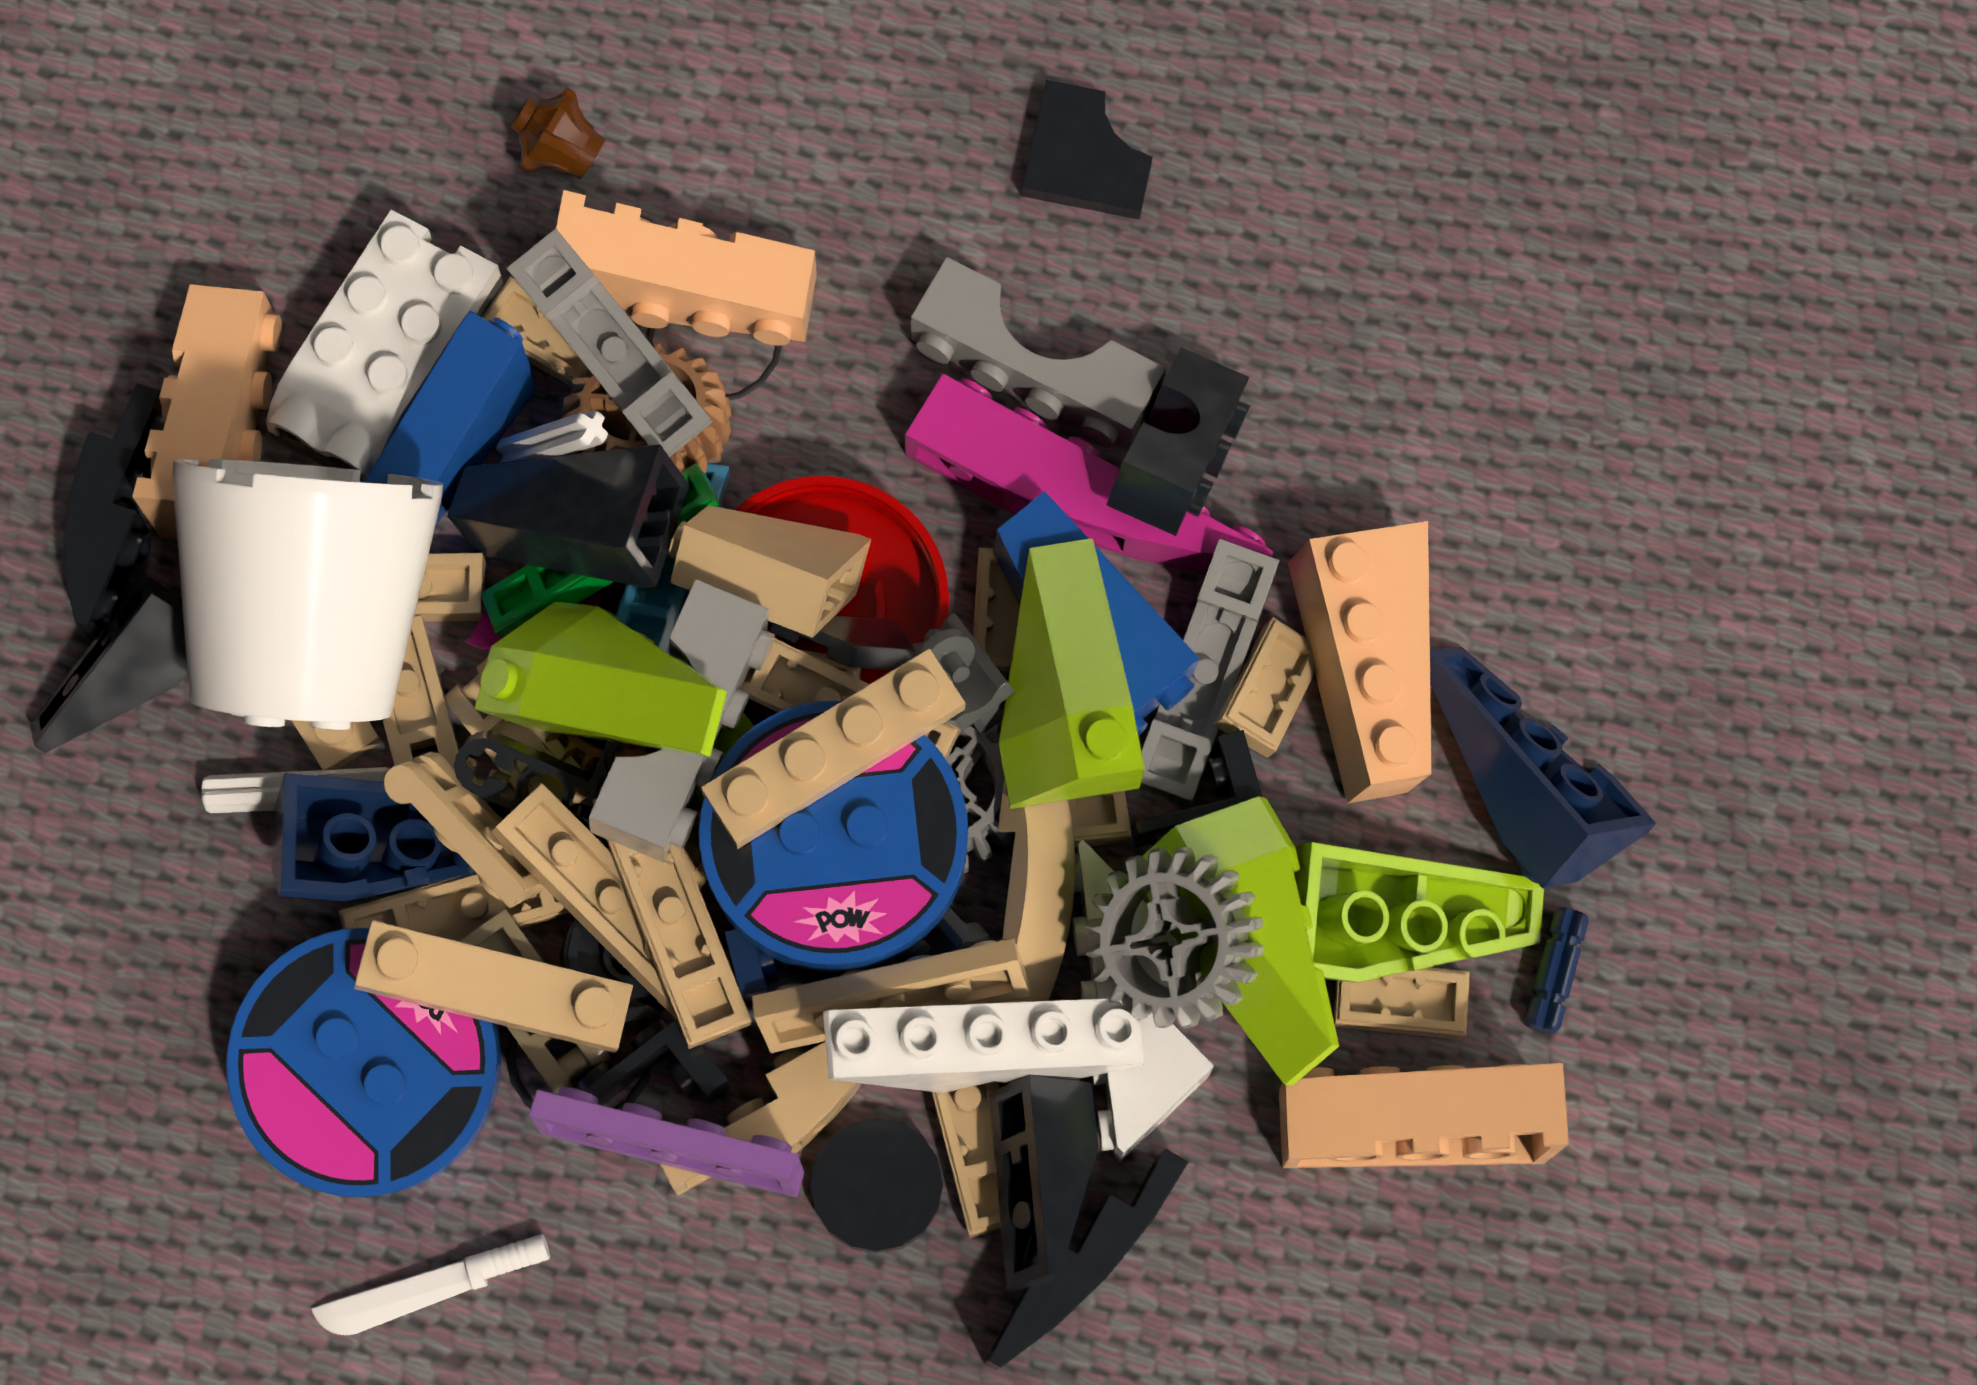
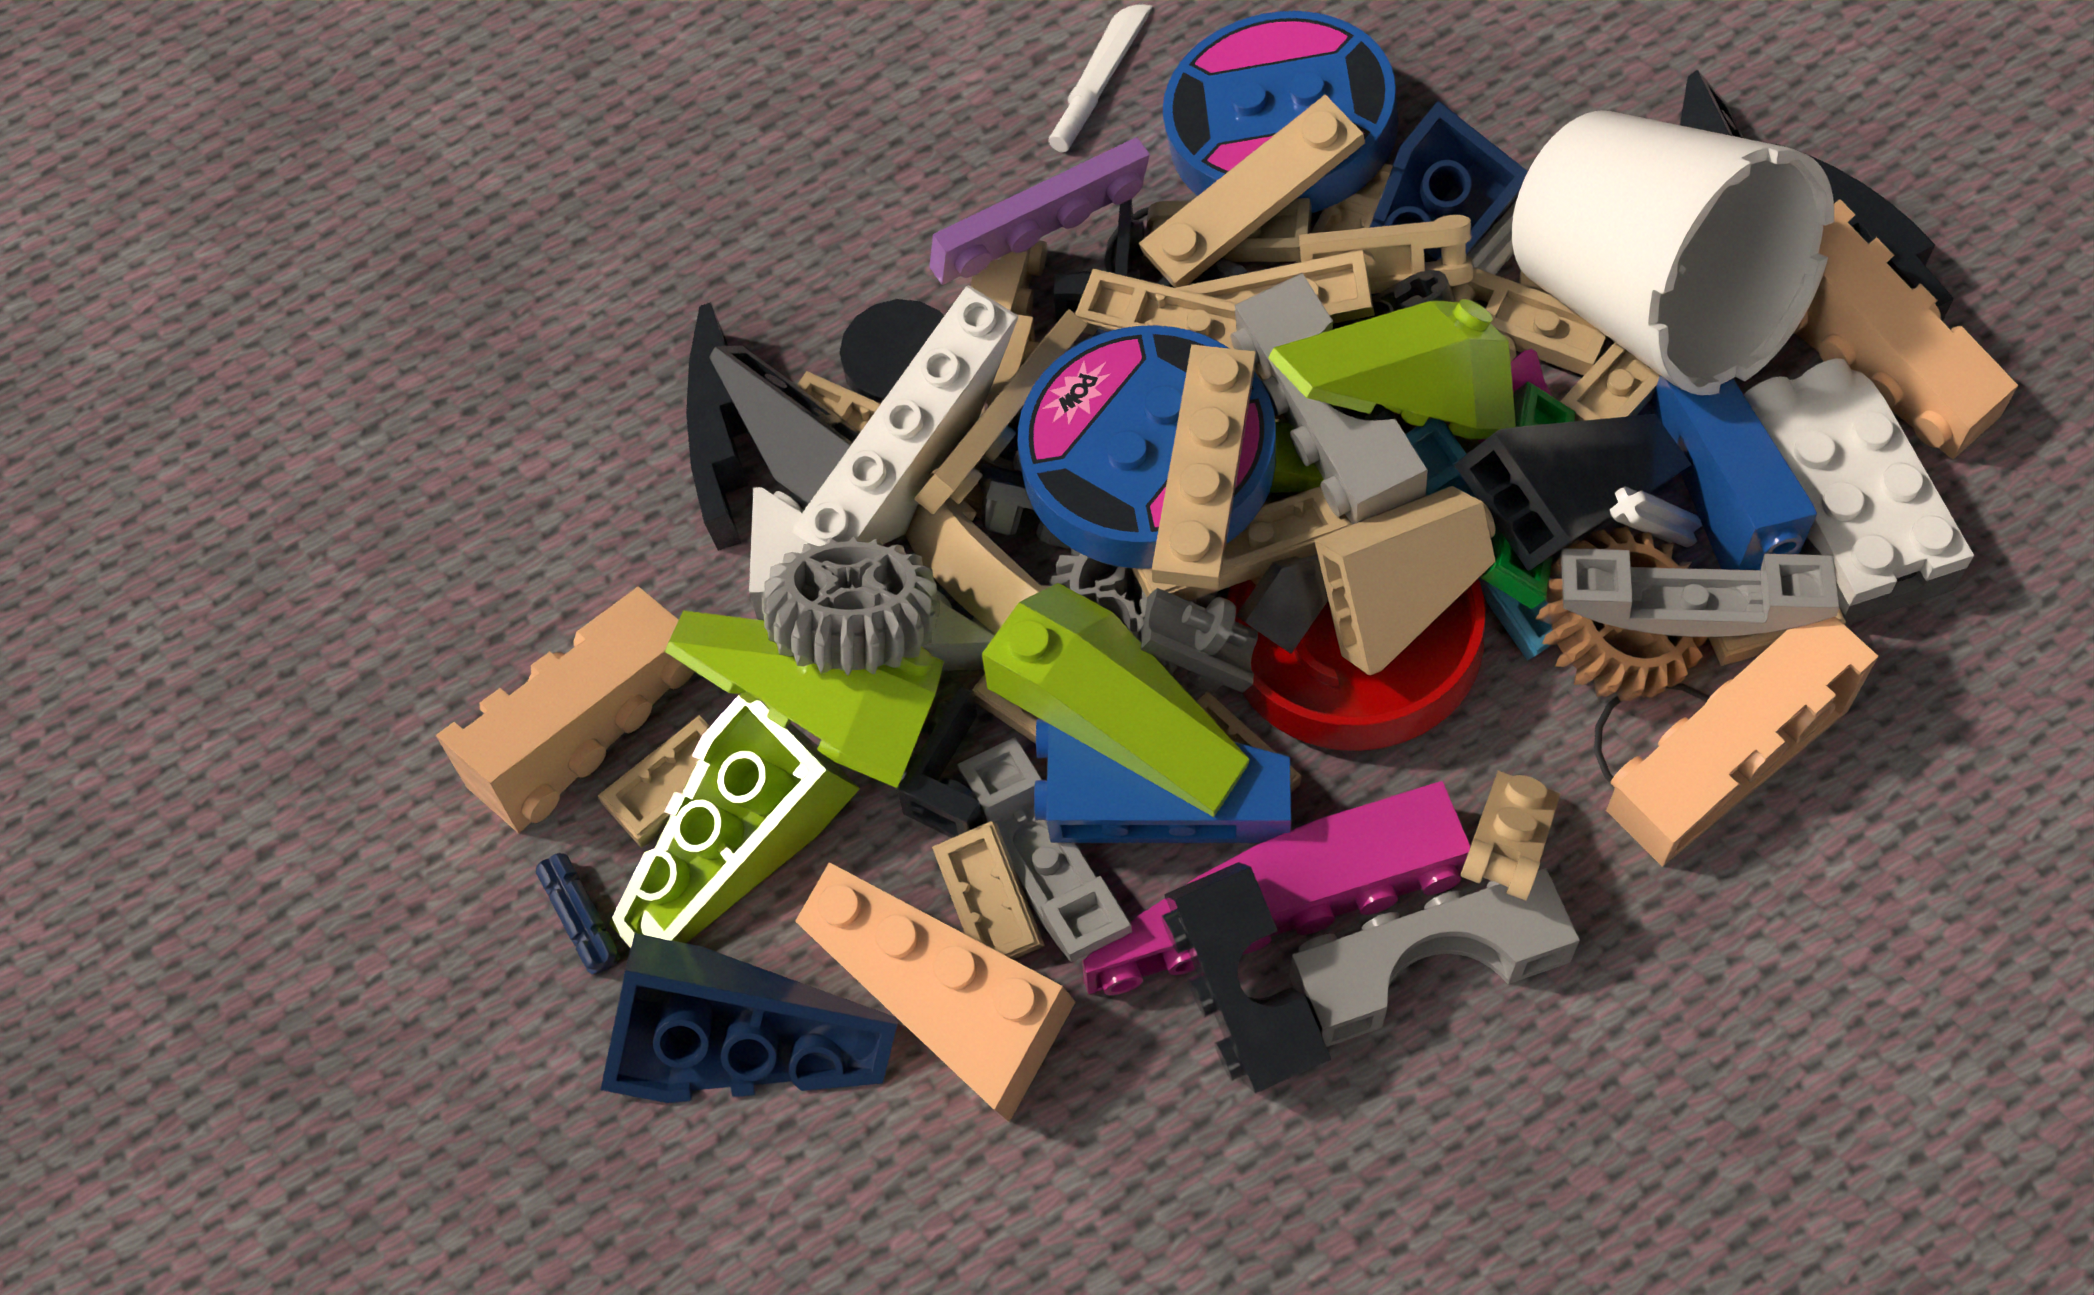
camera: 140 degrees right, 10 degrees down
(556, 135) = (1958, 745): reddish brown rock -> none
(906, 358) = (1511, 833): none -> tan plate
(1080, 158) = (1597, 1163): black tile -> none

